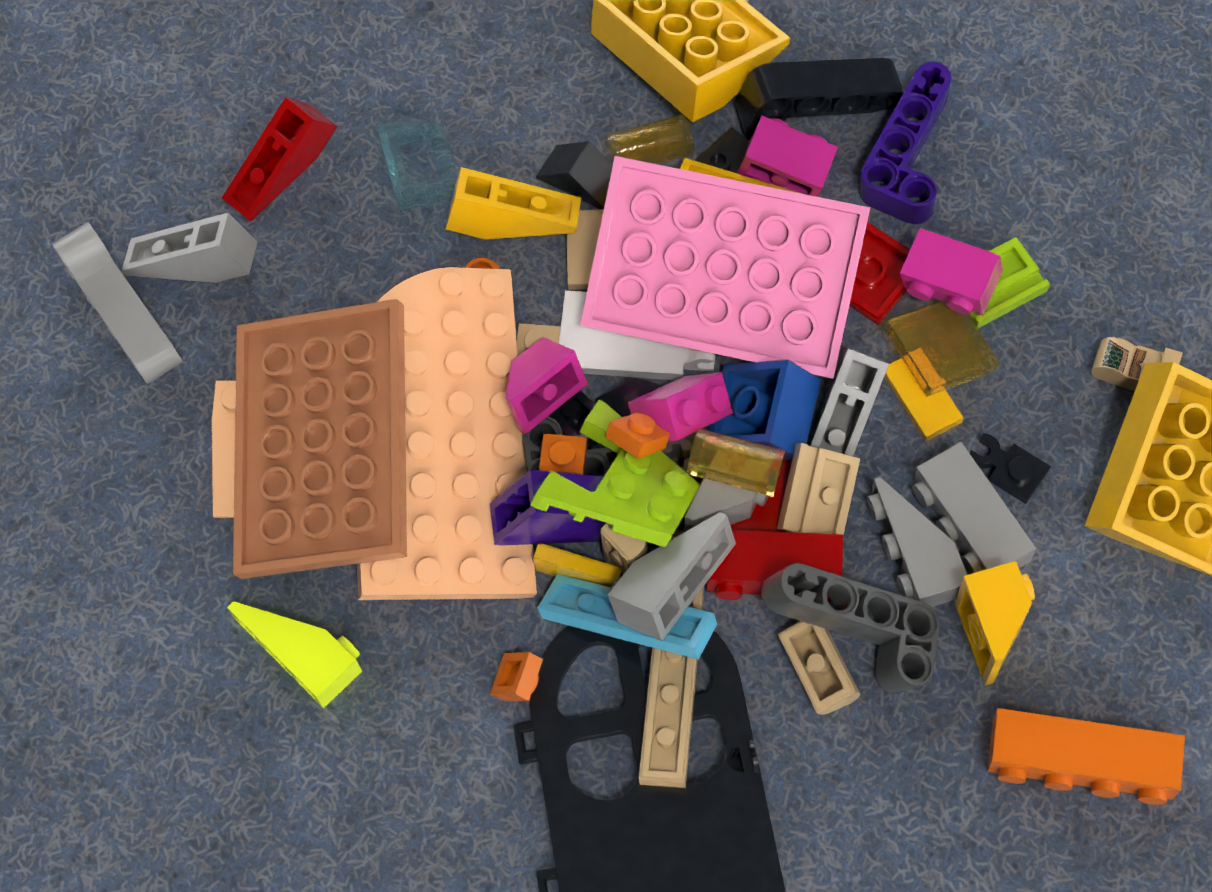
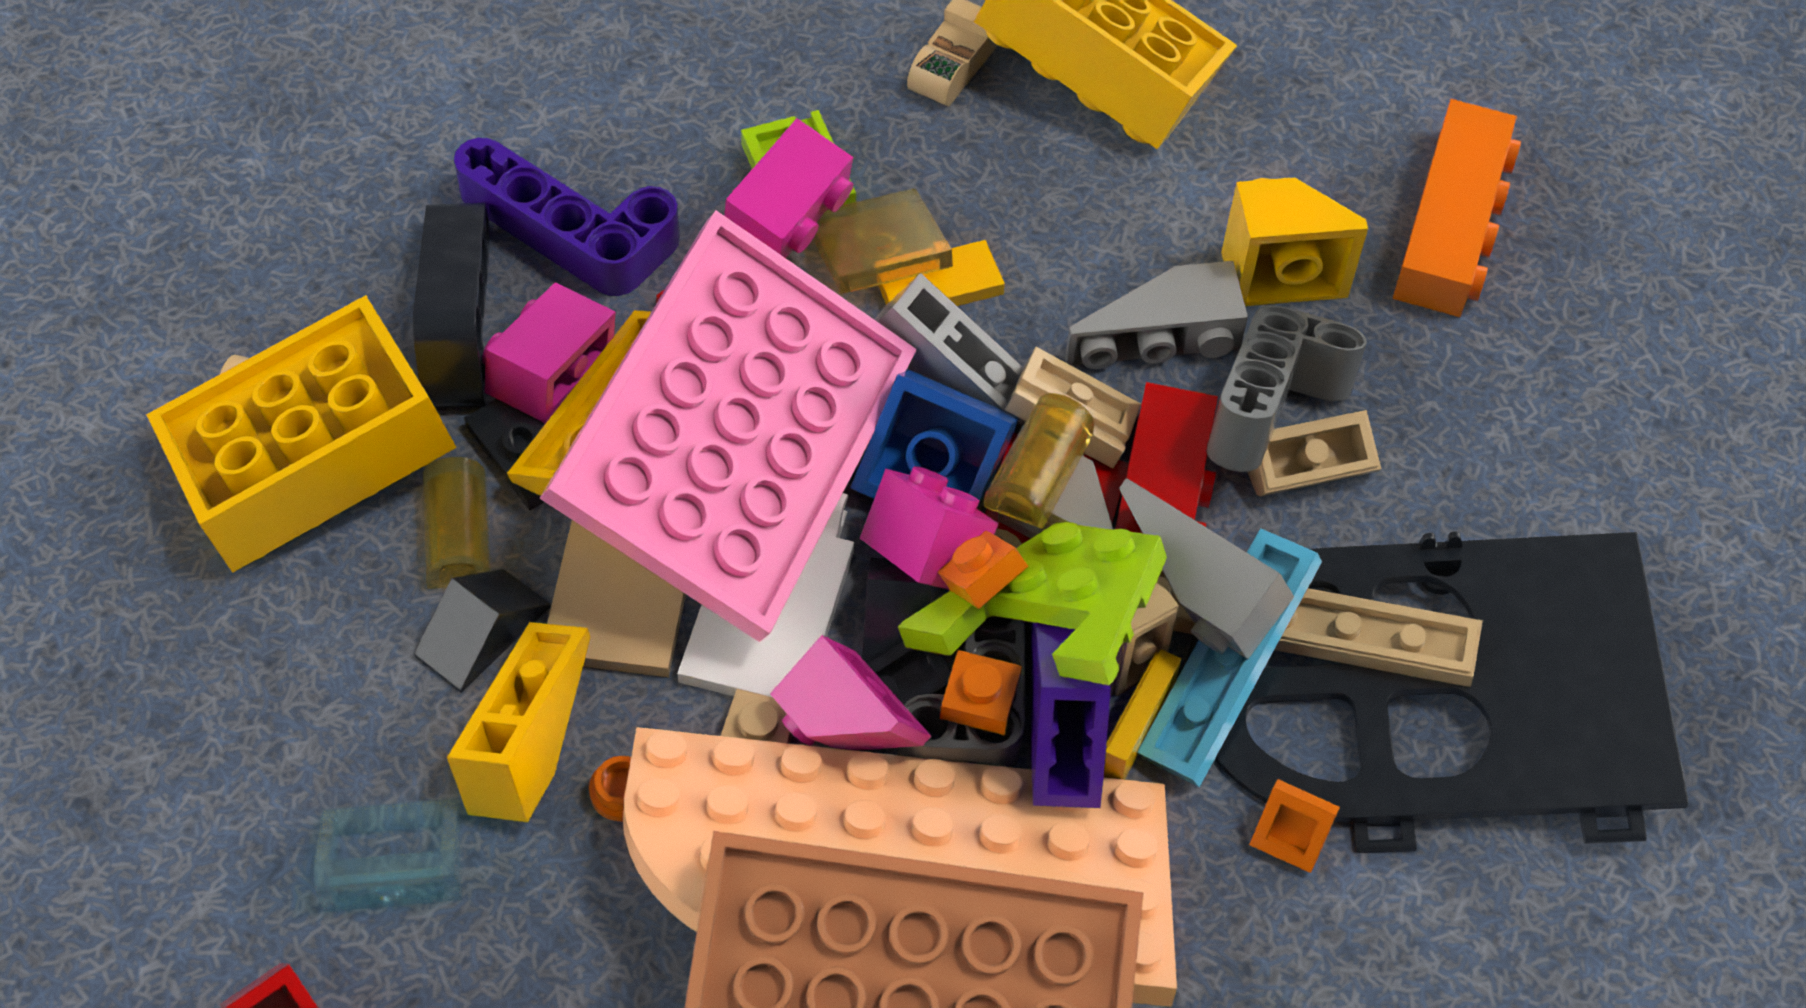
camera: 90 degrees left, 10 degrees down
(971, 511) = (1121, 249): light grey brick -> none
(1014, 471) = (1063, 204): black plate -> none

